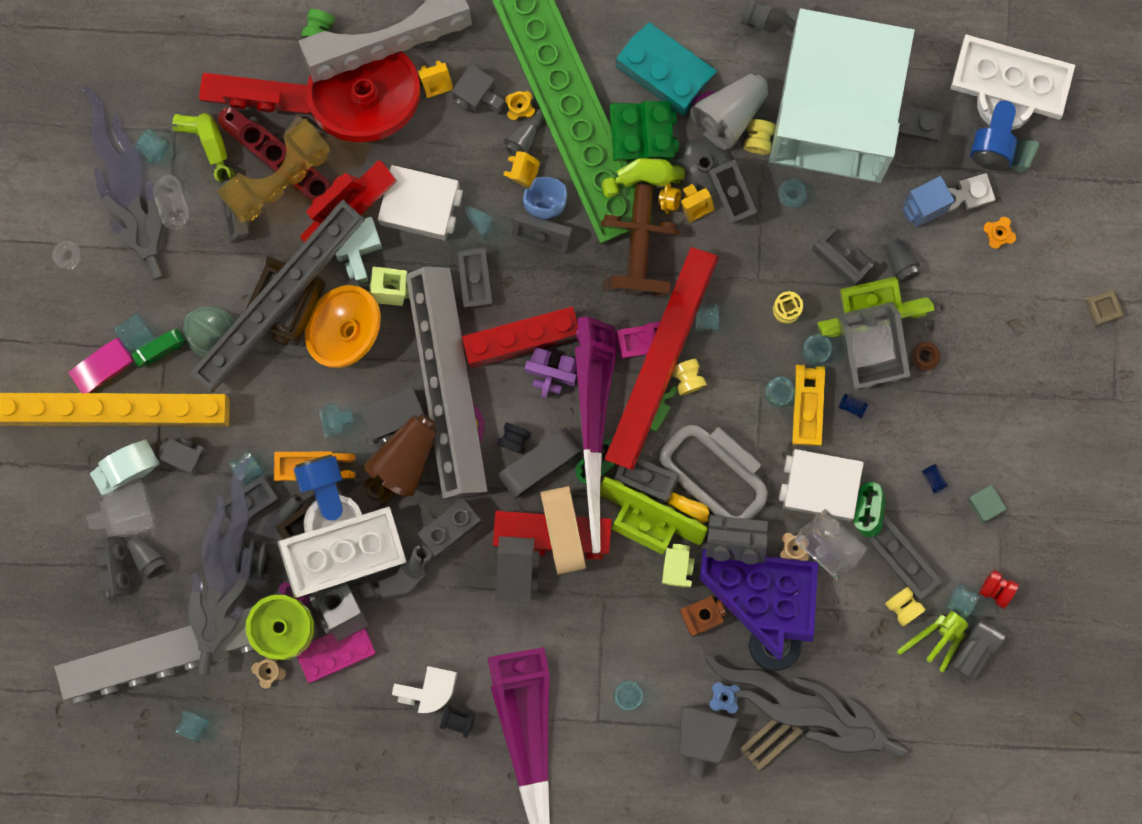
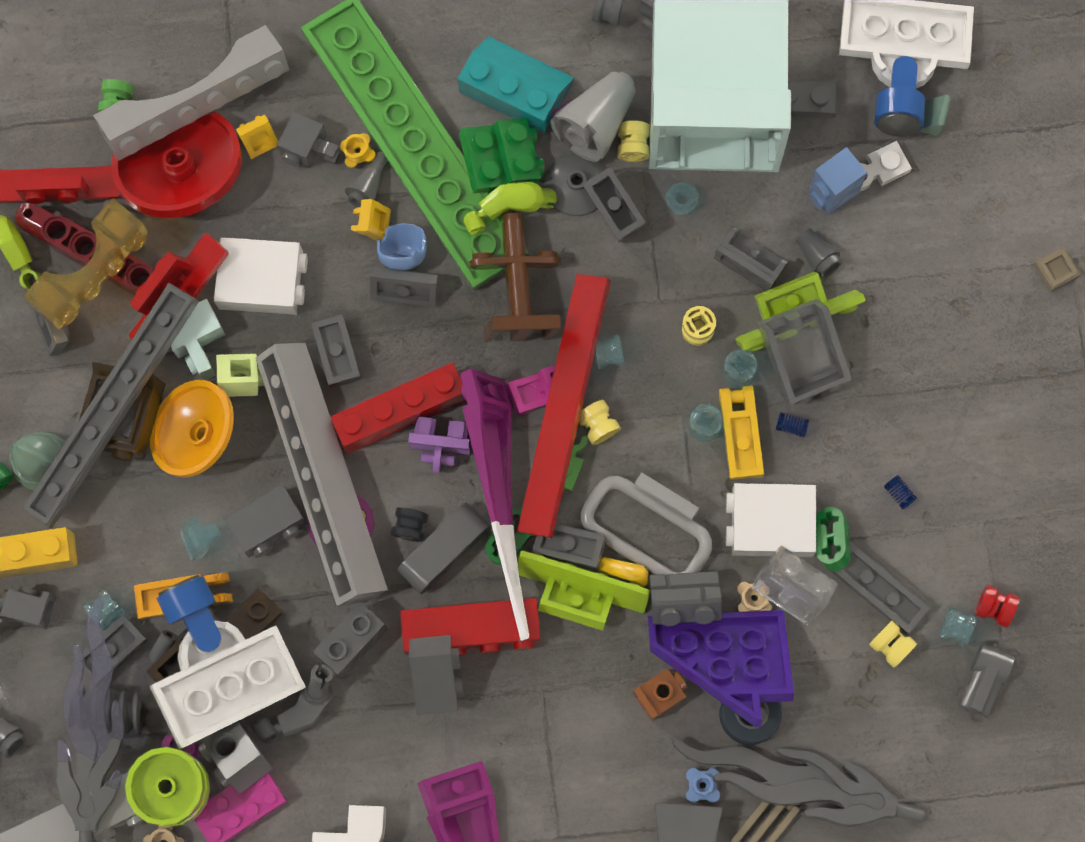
camera: 10 degrees left, 5 degrees down
(404, 456) = (284, 564): reddish brown cone -> none
(480, 221) = (332, 285): clear light blue slope -> none
(563, 530) = (482, 619): tan beam -> none
(625, 693) = (586, 798): clear light blue wheel -> none
(669, 198) = (544, 226): yellow plate -> none
(677, 566) = (621, 641): yellowish green brick -> none
(696, 203) = (575, 226): yellow tile -> none
(925, 347) = (868, 346): reddish brown plate -> none
(951, 629) = (951, 661): lime plant -> none
(986, 504) = (964, 511): sand green slope -> none
(996, 240) = (919, 213): light orange plate -> none

